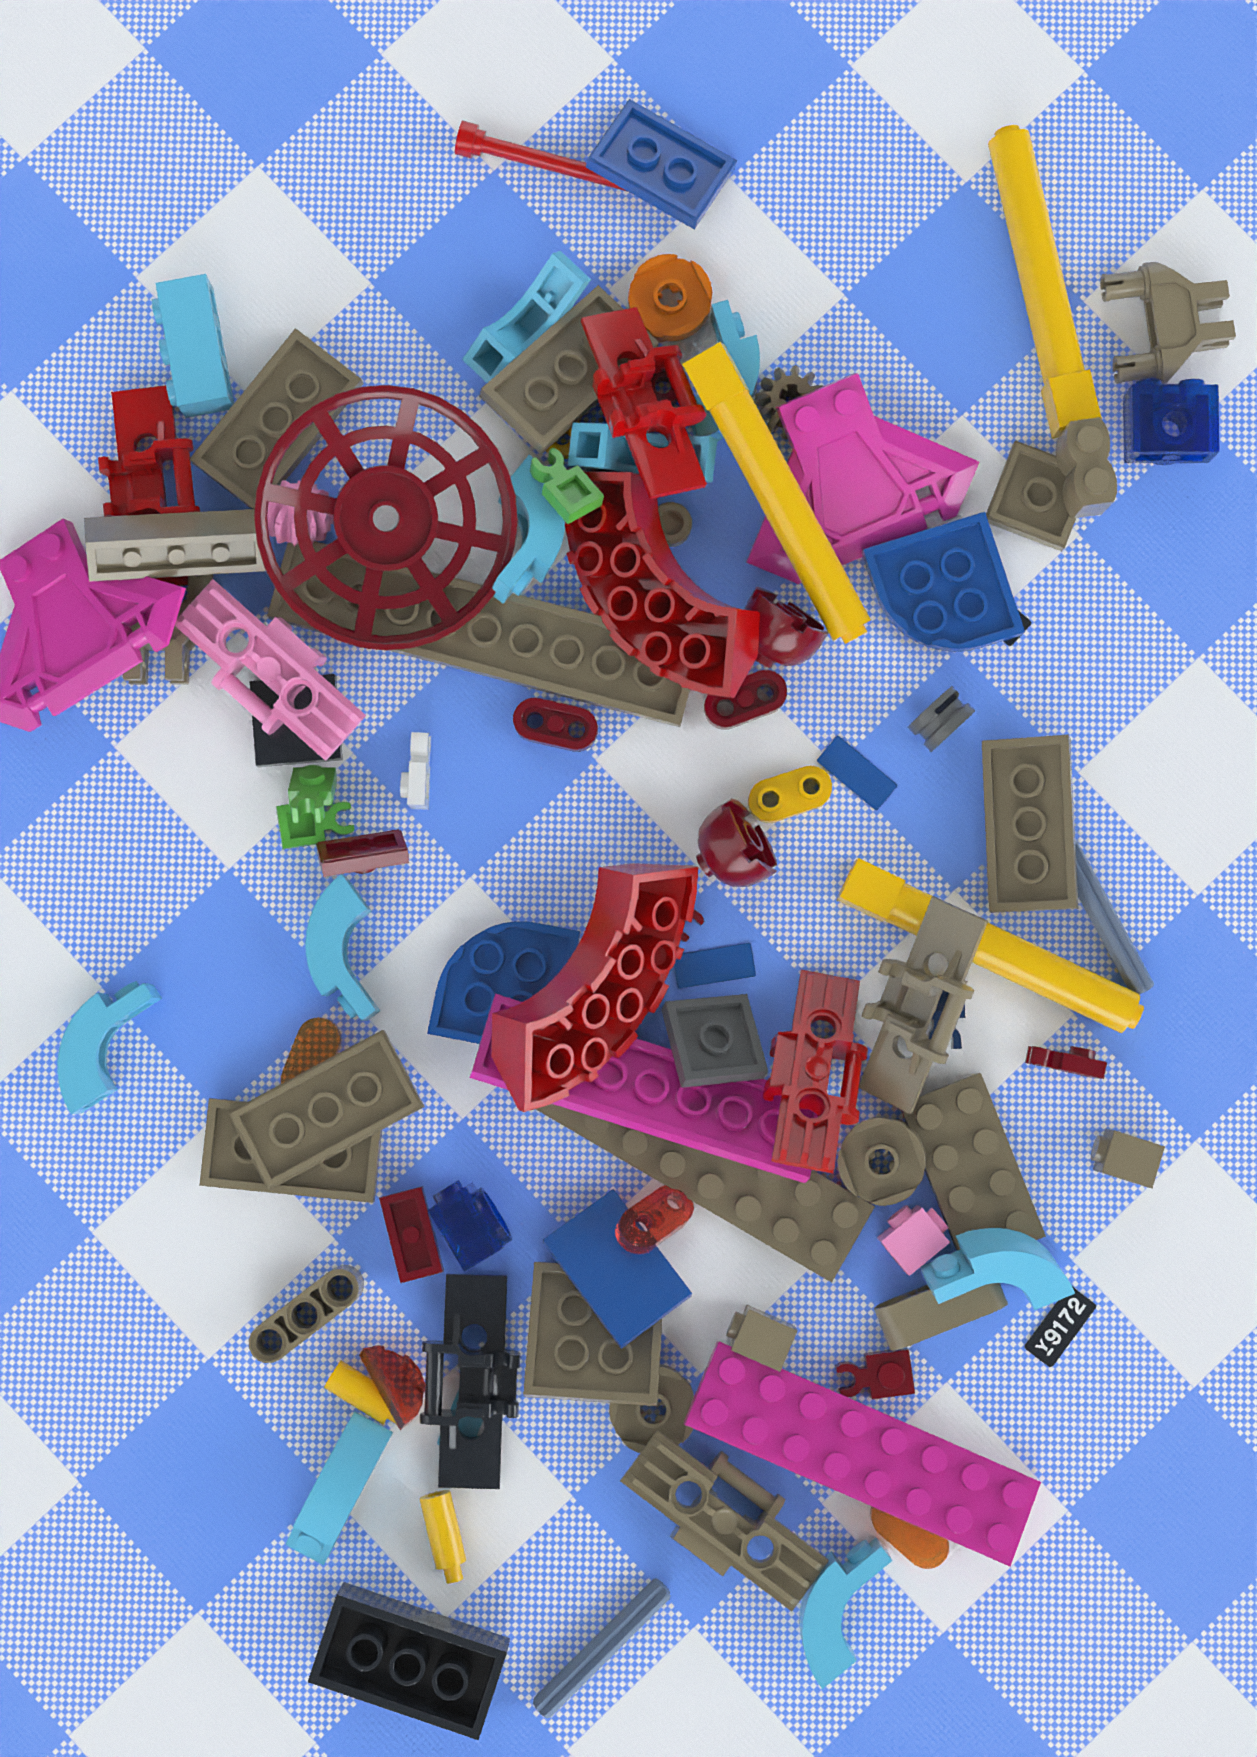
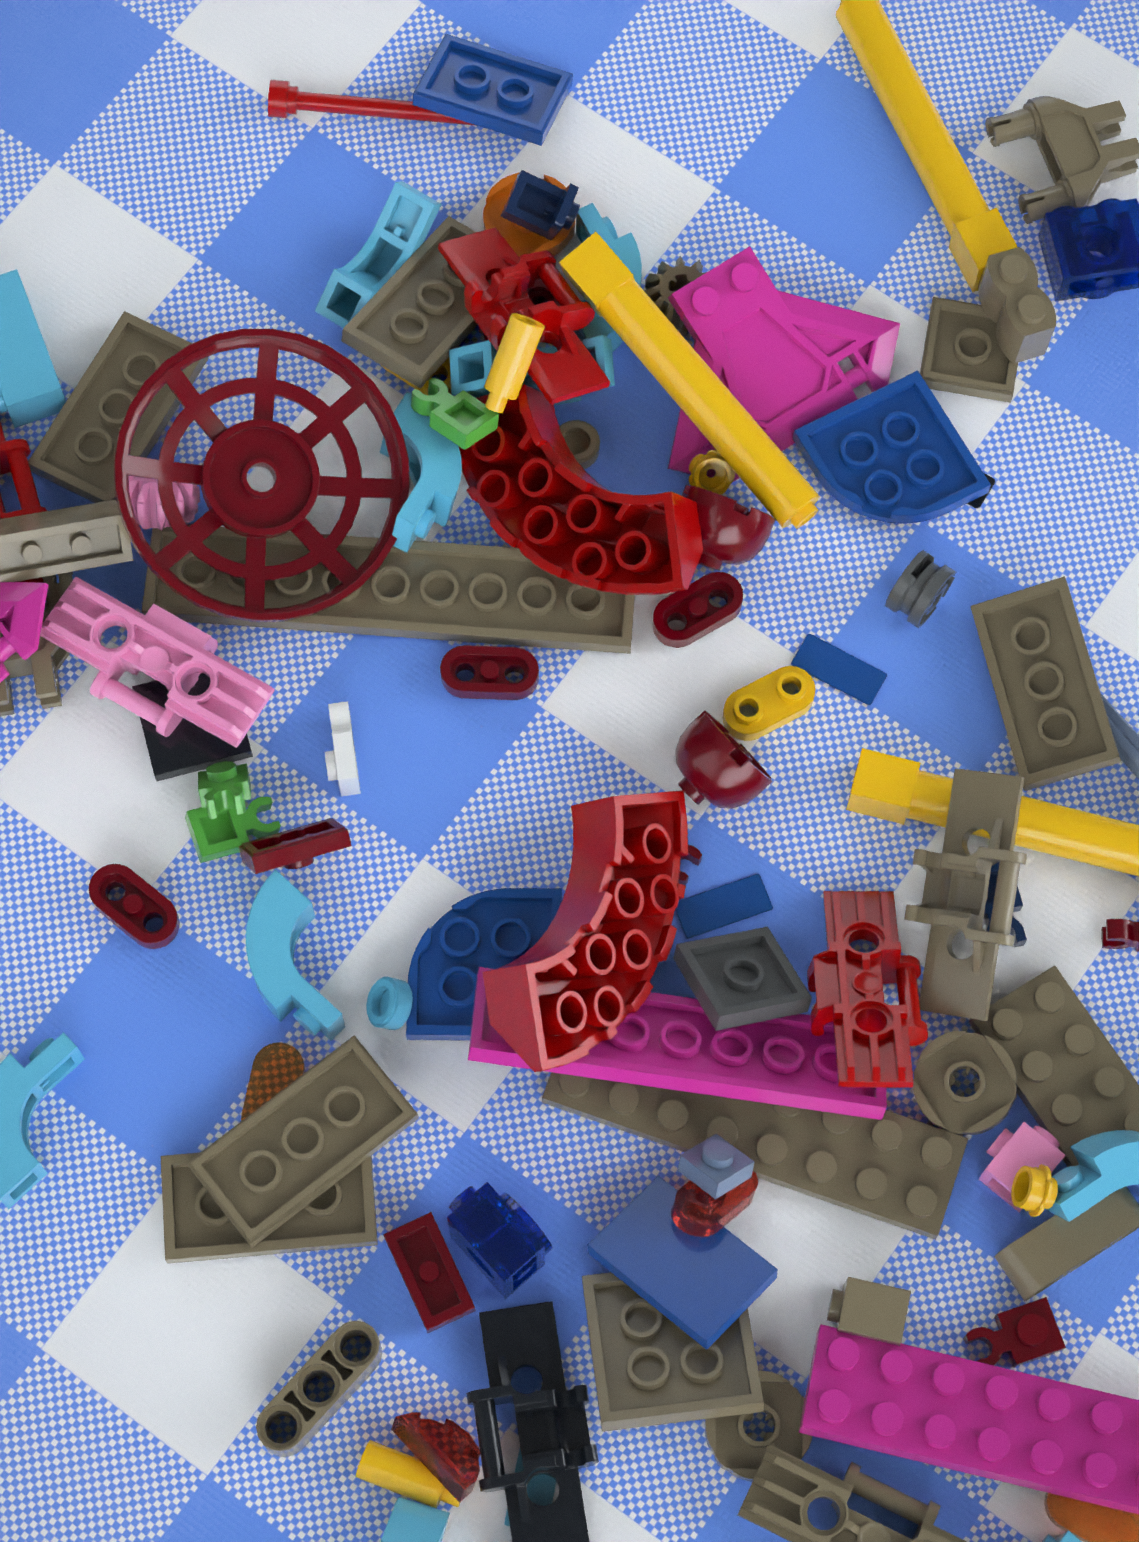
camera: 15 degrees left, 15 degrees down
(221, 879) = (136, 907): none -> dark red plate
(418, 1003) = (389, 1003): none -> medium azure tile
(623, 452) = (512, 361): none -> yellow cylinder
(659, 1198) = (715, 1166): none -> sand blue plate
(680, 295) = (541, 205): none -> dark blue bracket
(780, 586) = (712, 460): none -> yellow plate
(916, 1270) = (1034, 1189): none -> yellow plate

